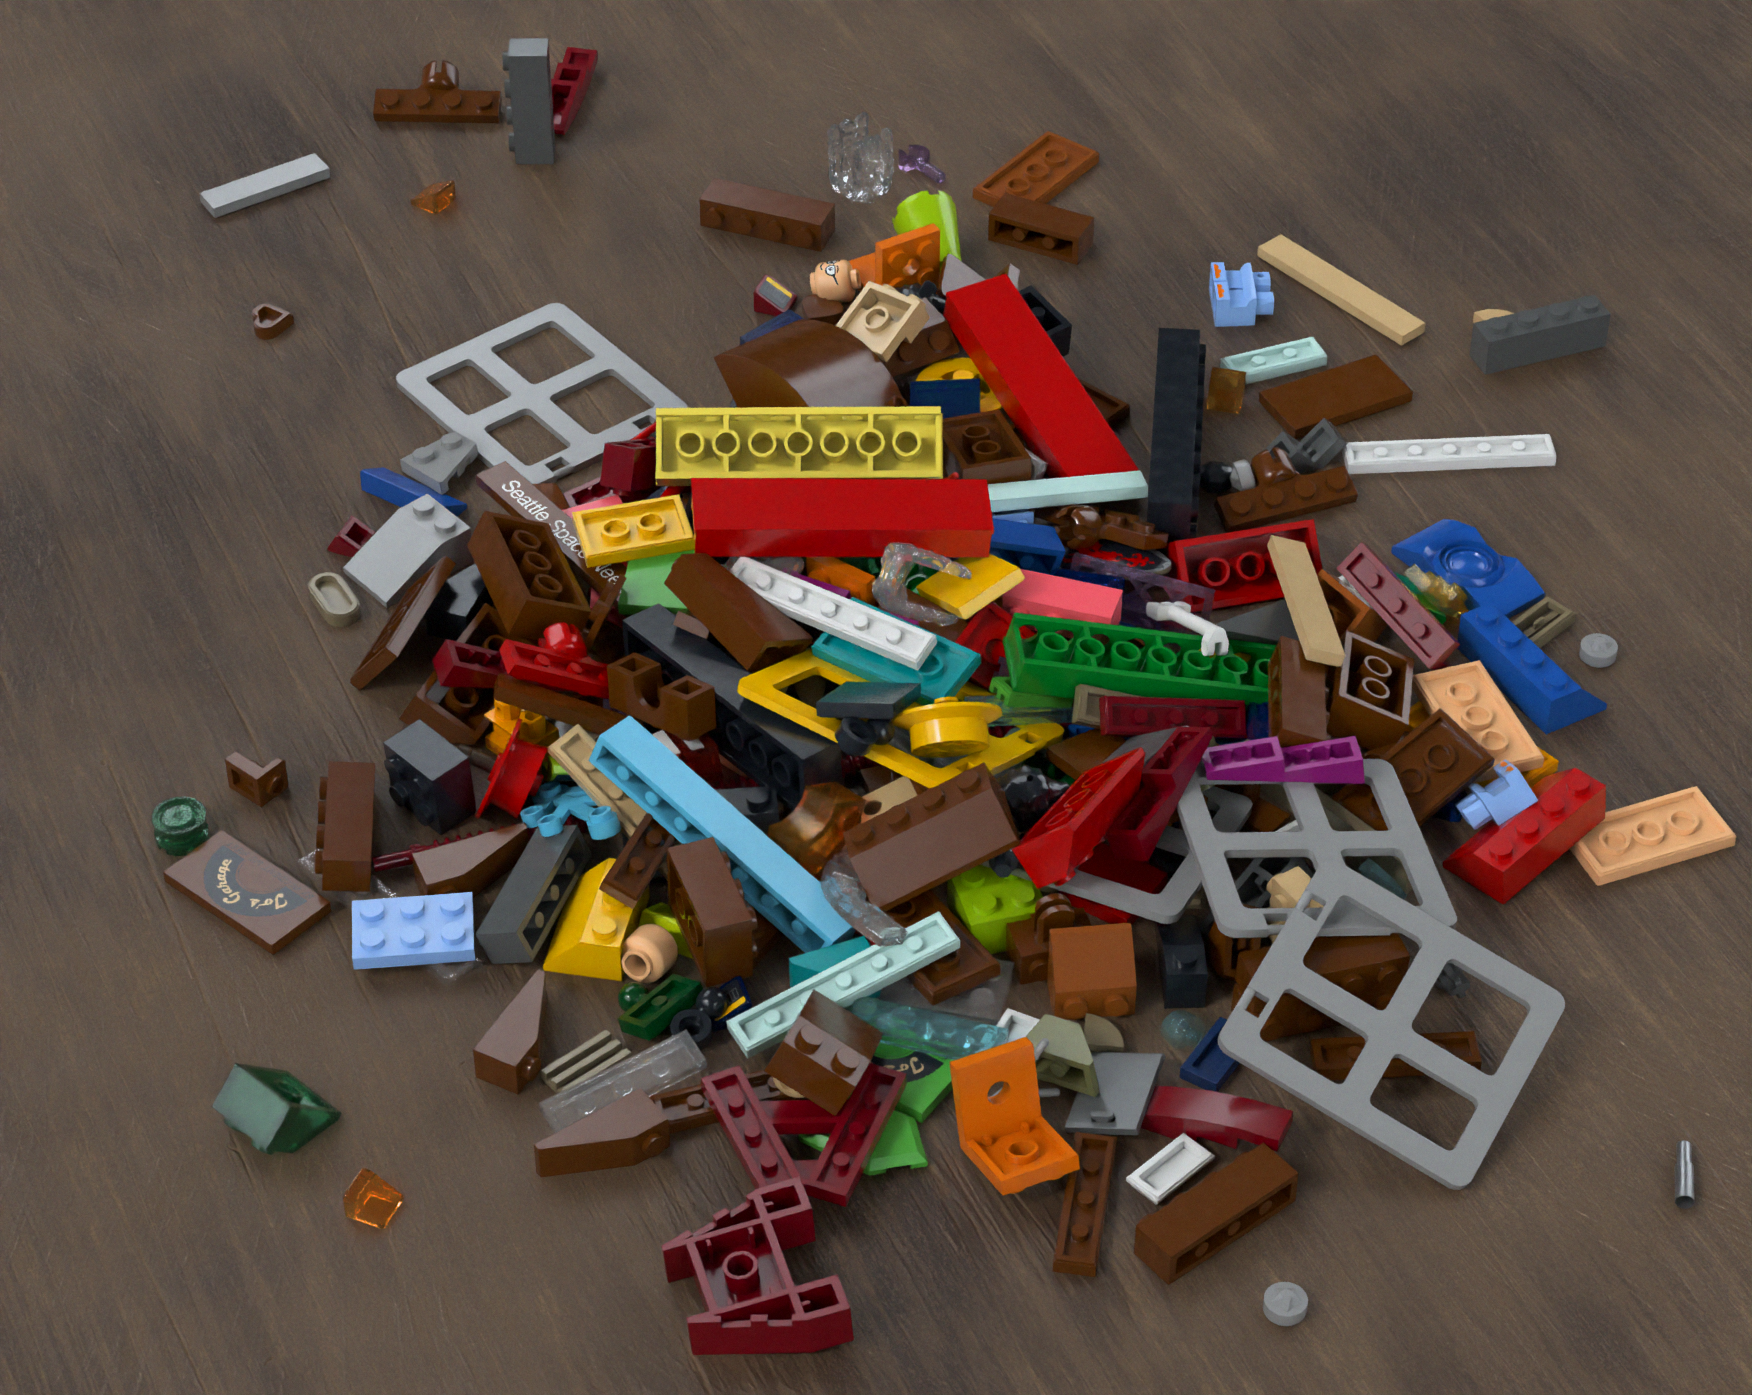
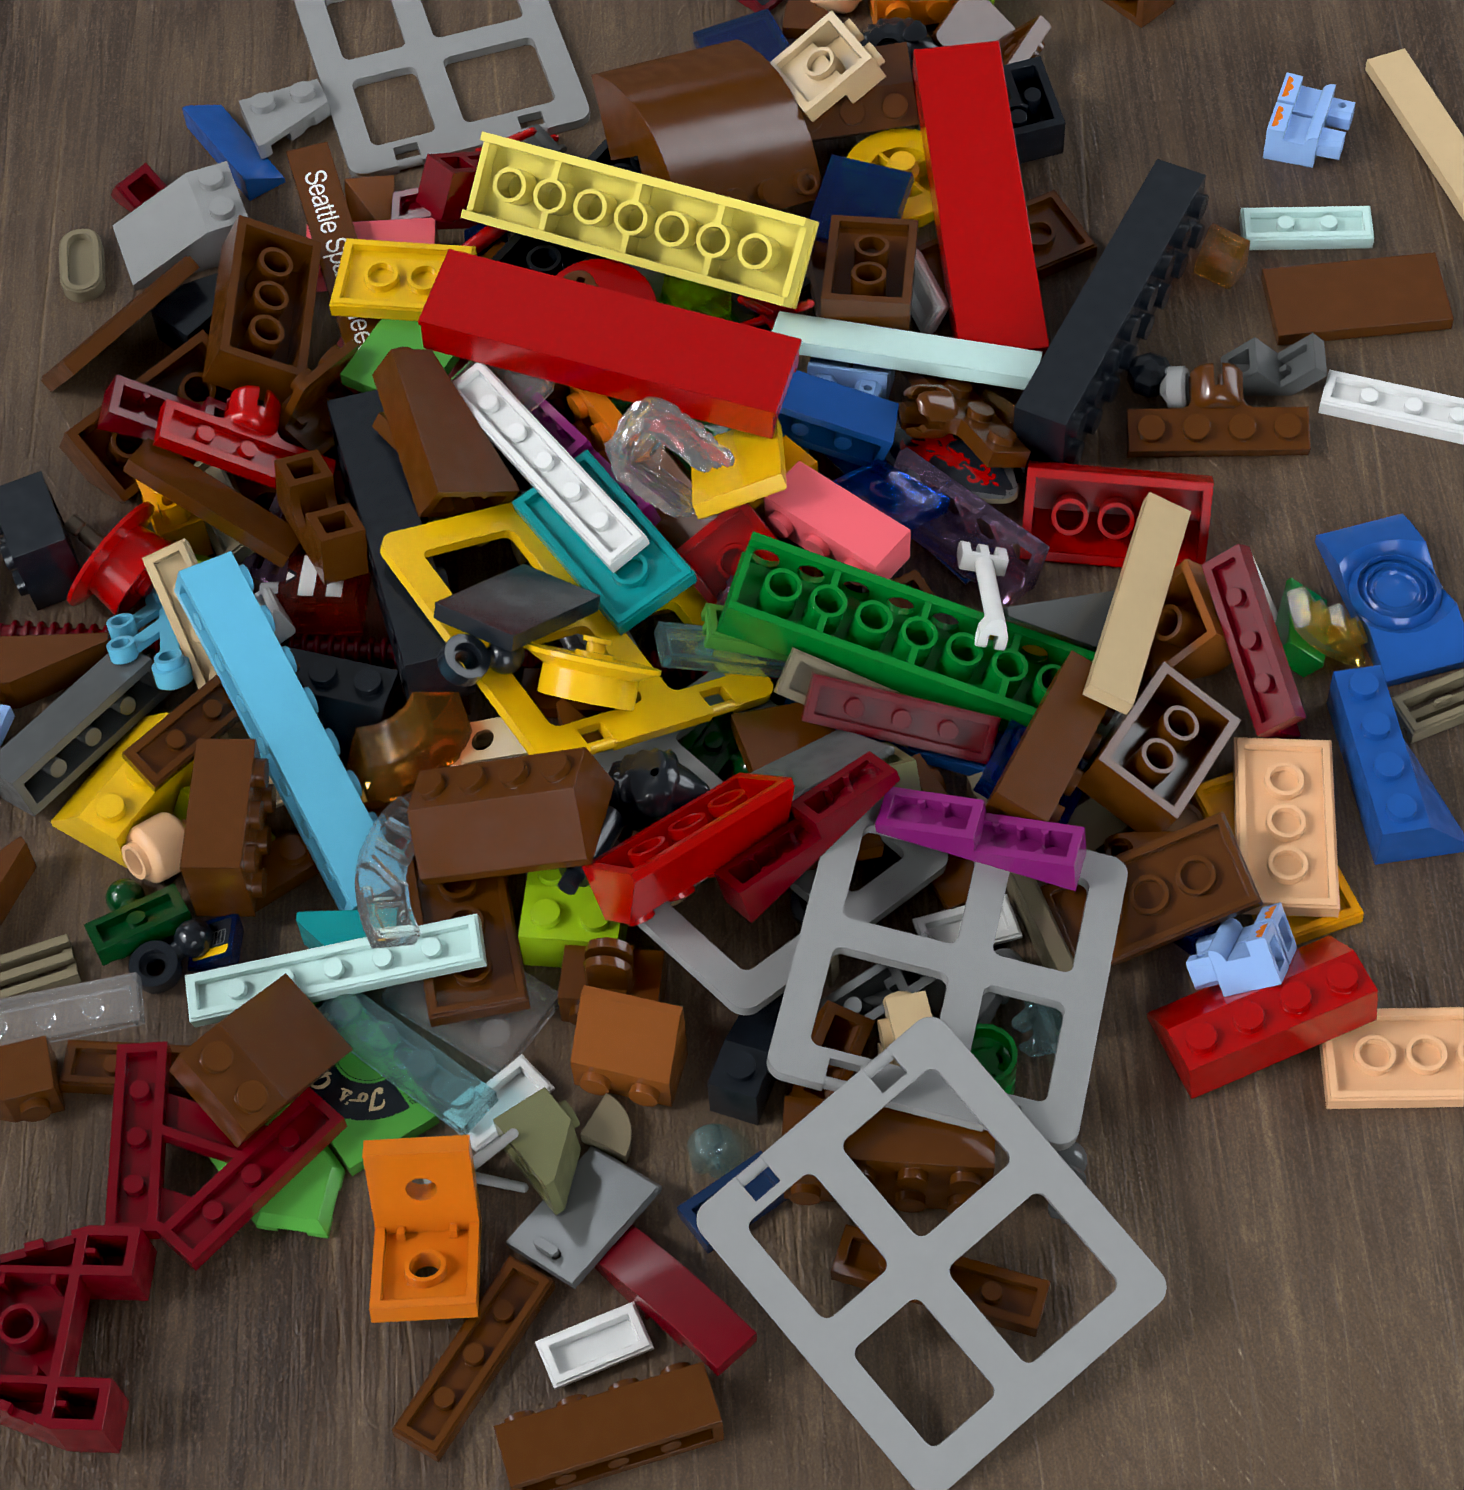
camera: 25 degrees right, 15 degrees up
(1126, 872) = (731, 932): red tile -> none

